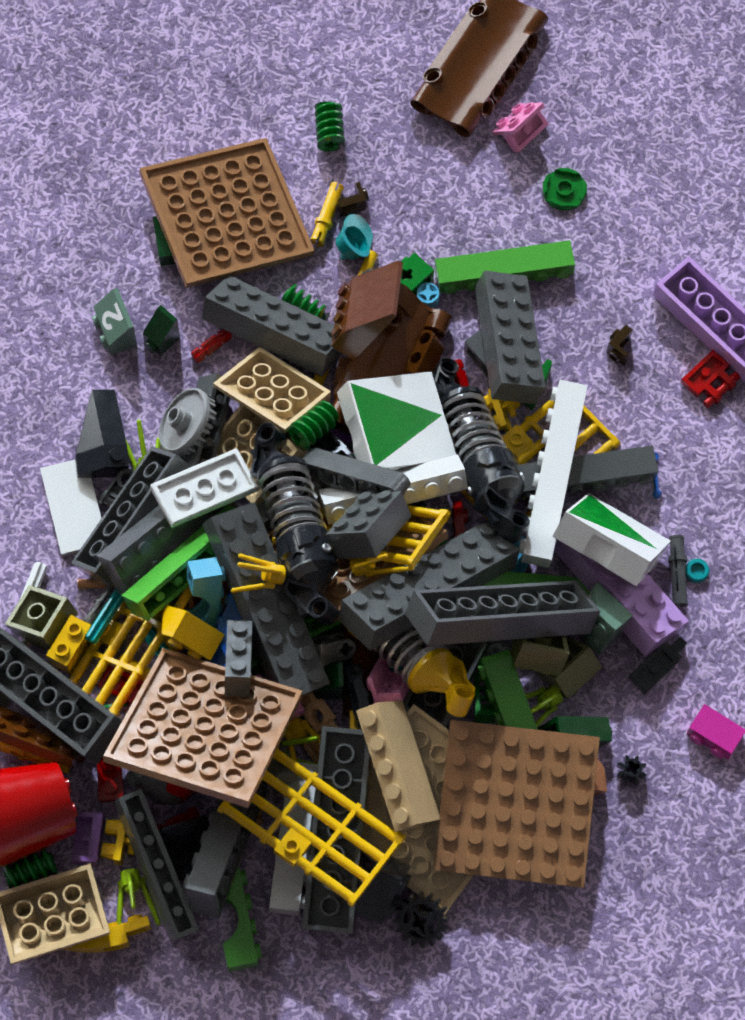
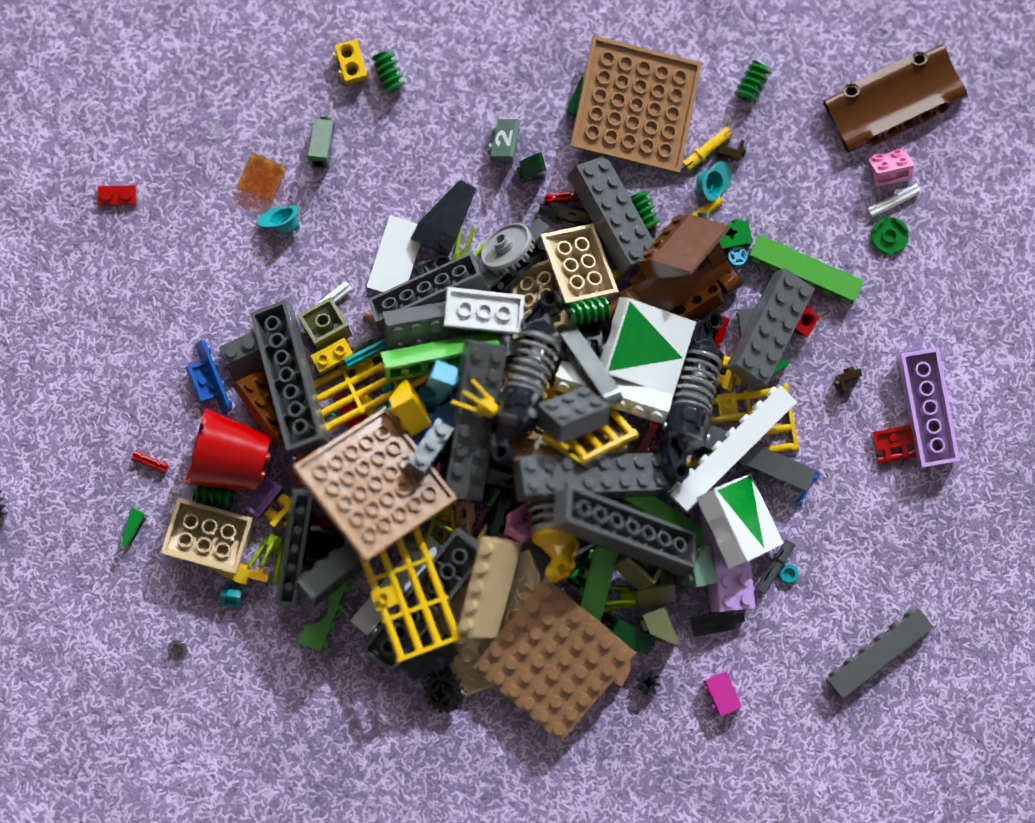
camera: 30 degrees right, 15 degrees up
(120, 968) = (231, 597): none -> teal tile
(224, 358) = (564, 214): none -> black hinge
(544, 311) = (811, 320): none -> red brick
(545, 154) = (894, 200): none -> white axle
(604, 700) = (659, 625): none -> olive slope

